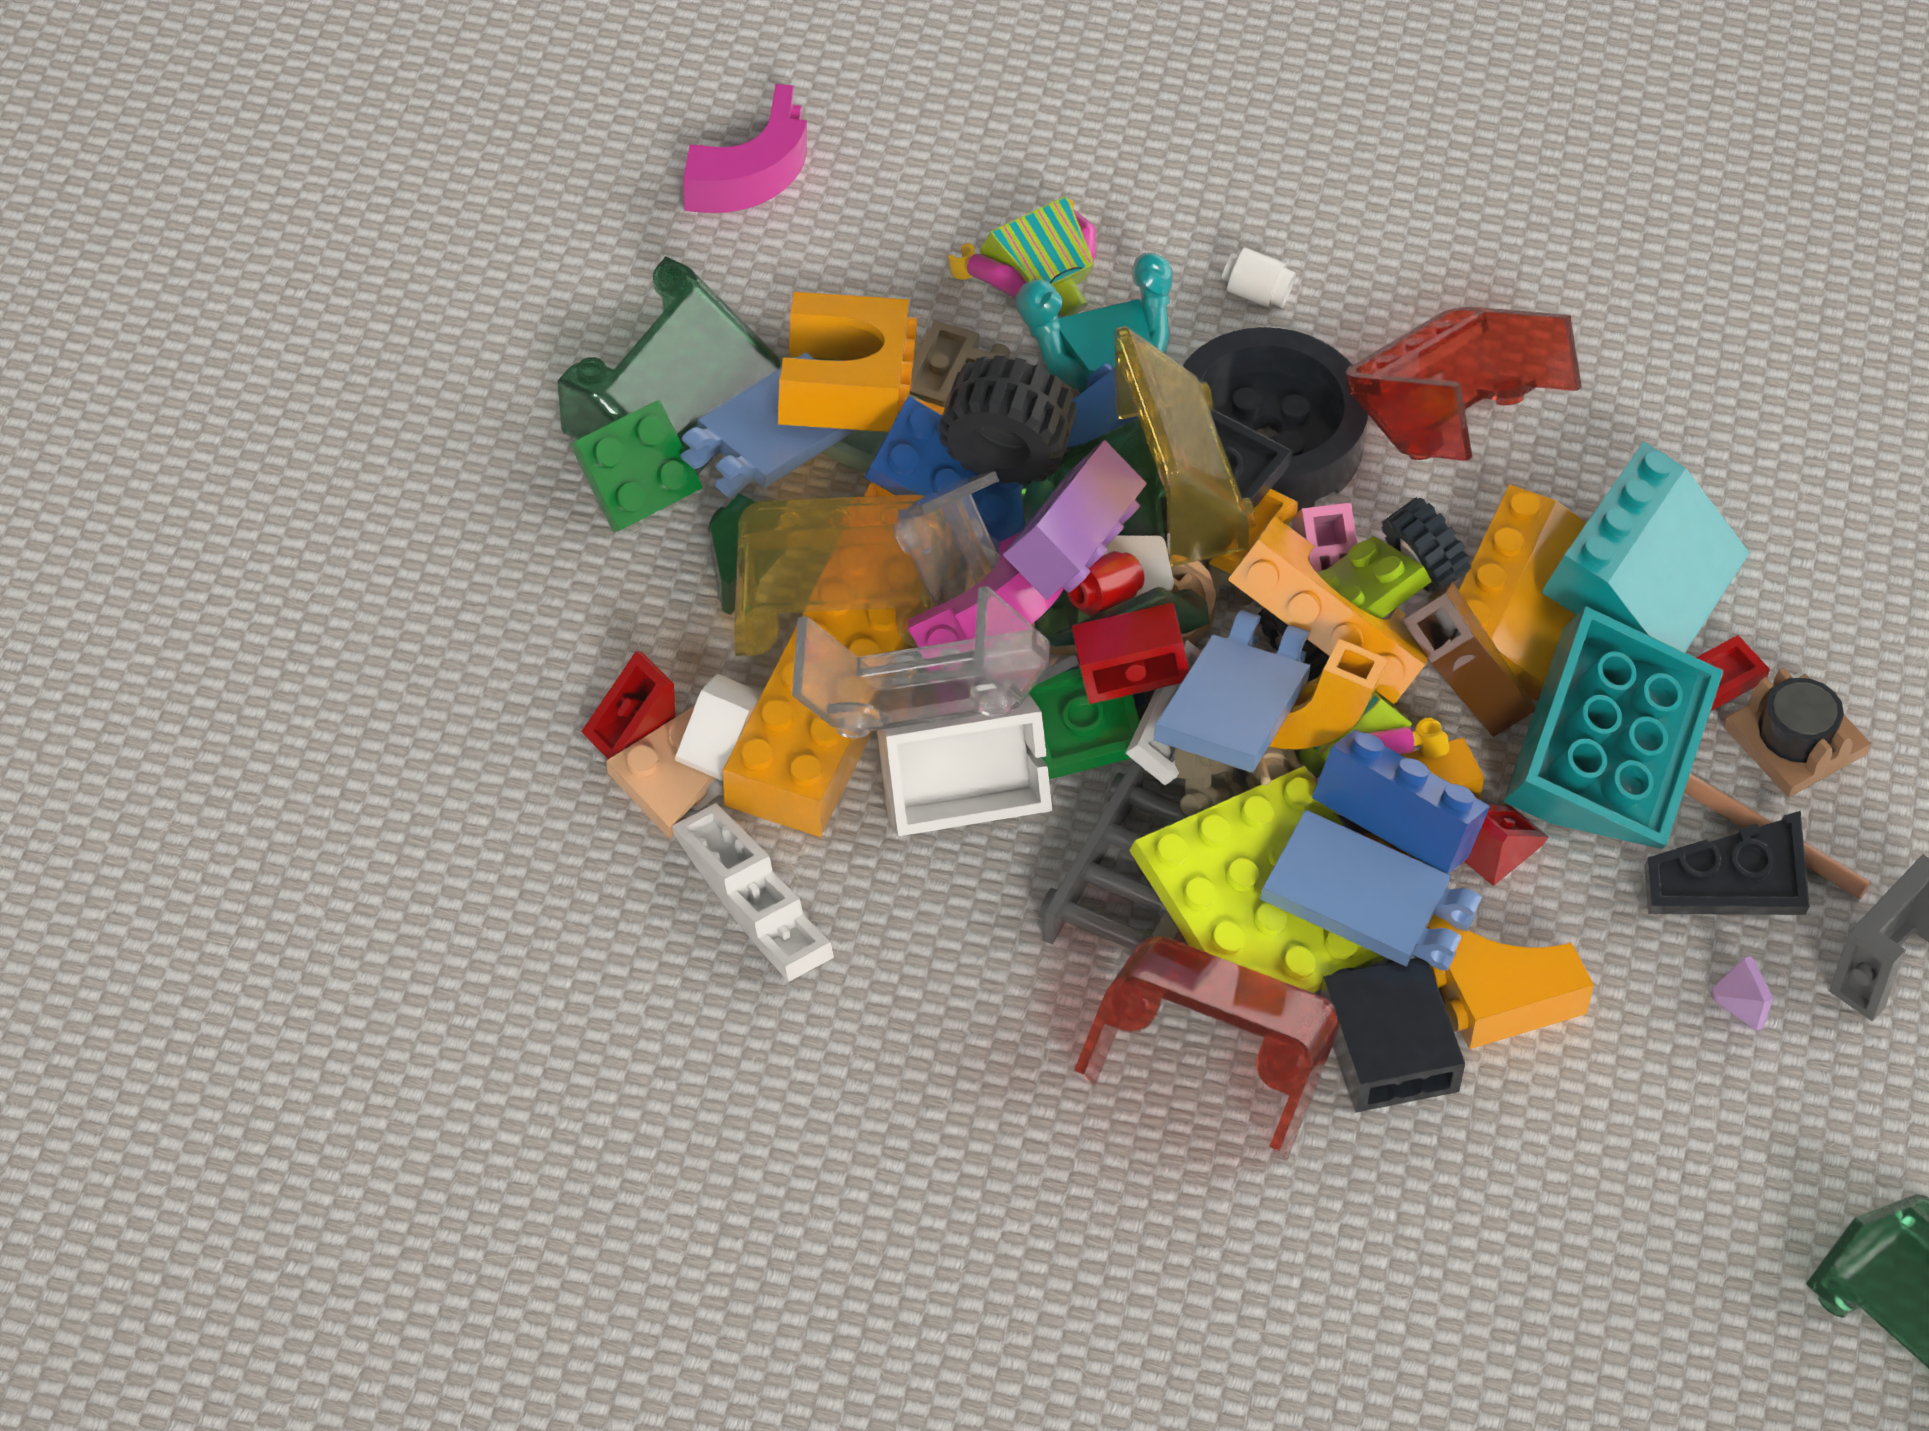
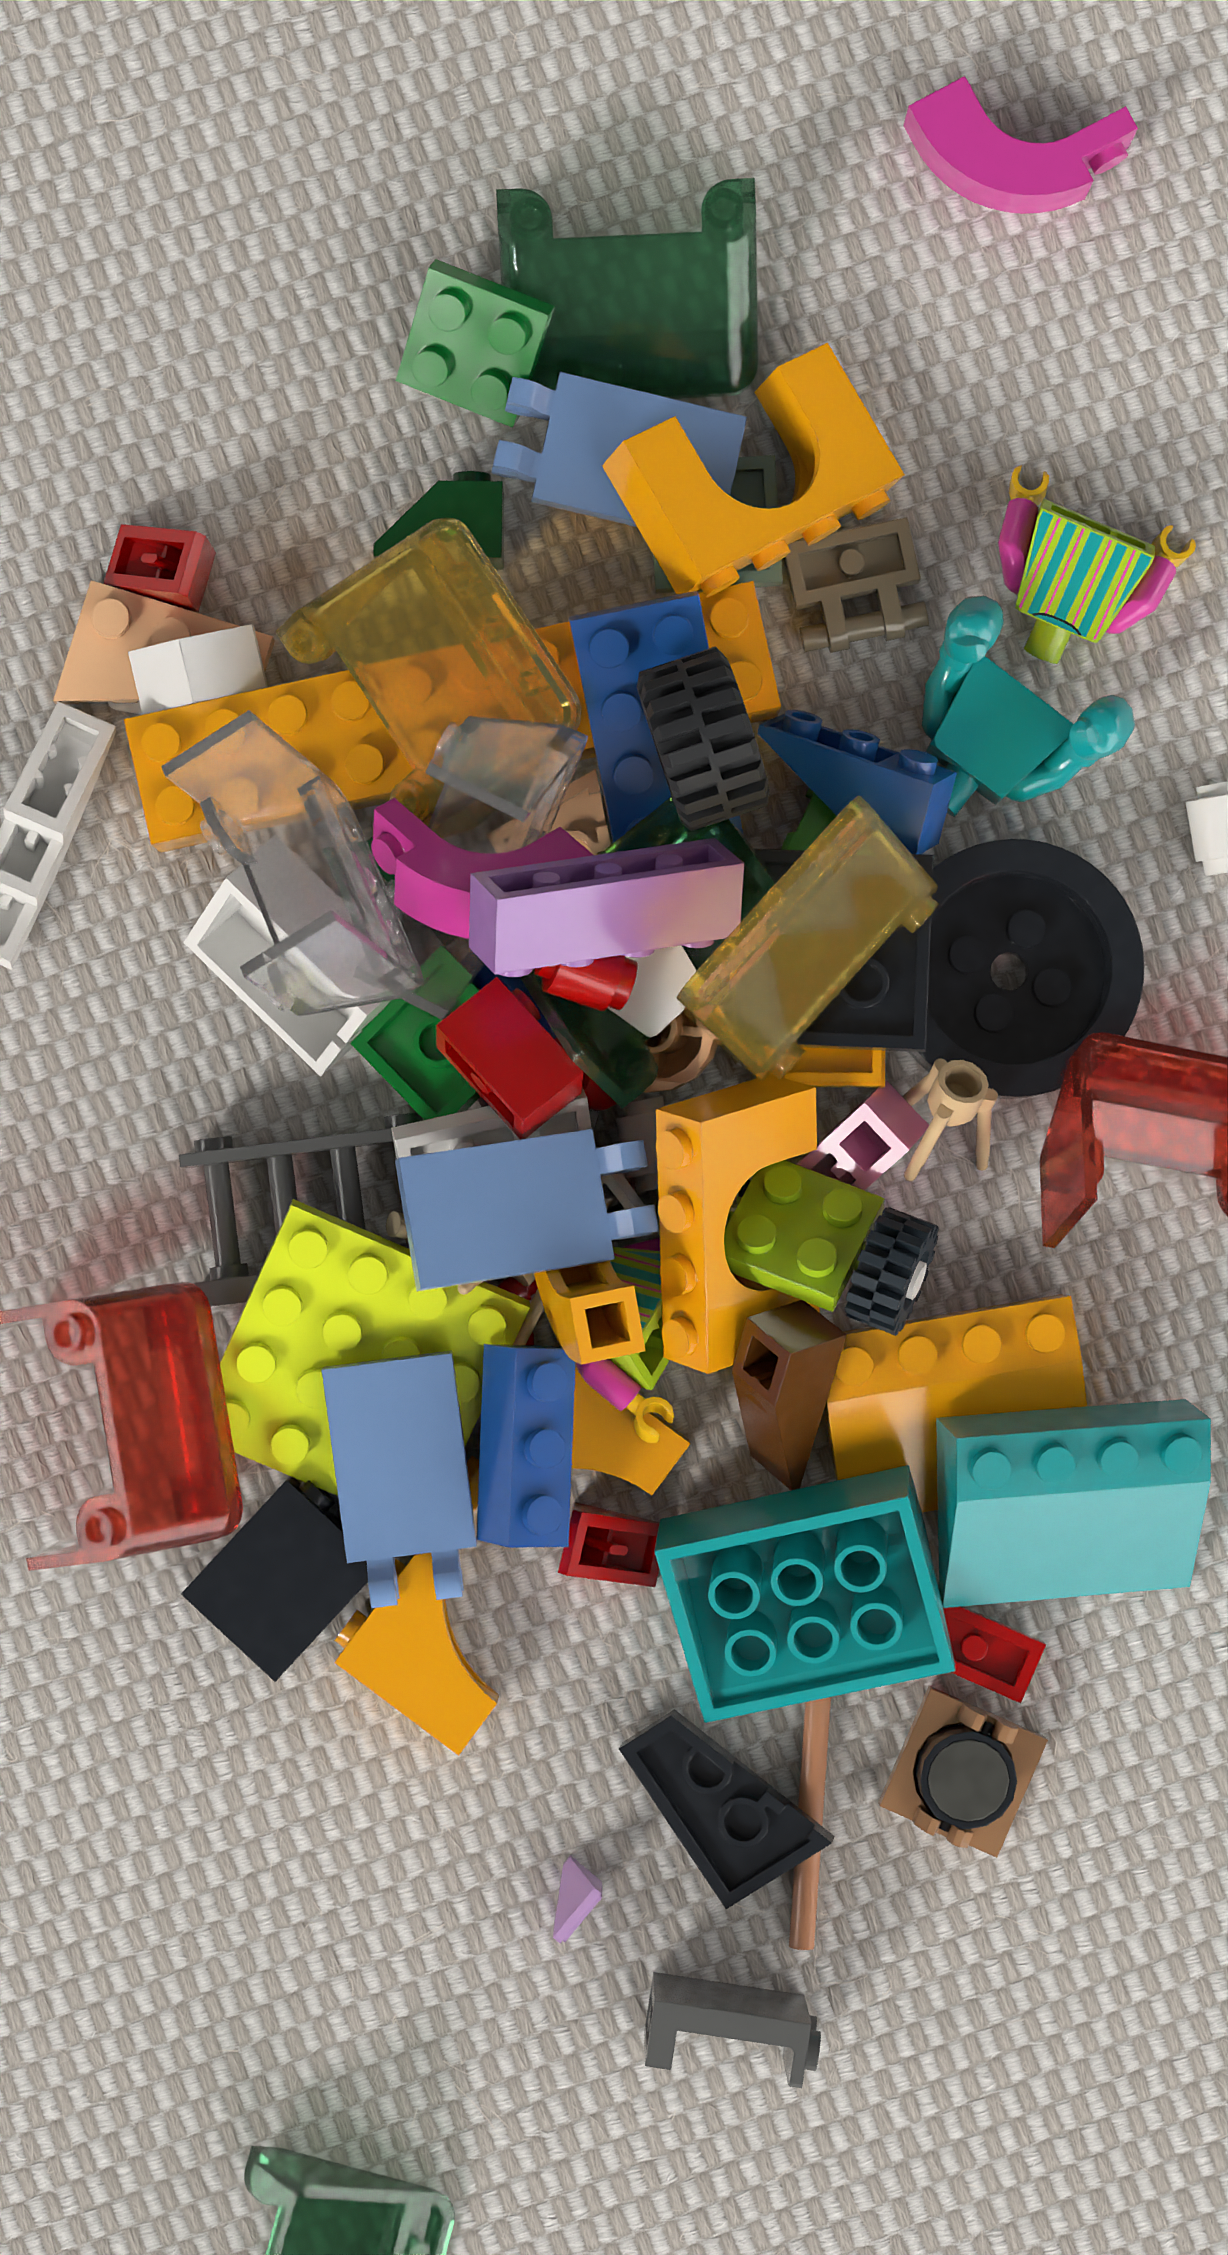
camera: 55 degrees right, 35 degrees up
(1335, 460) = (954, 1097): none -> tan plant

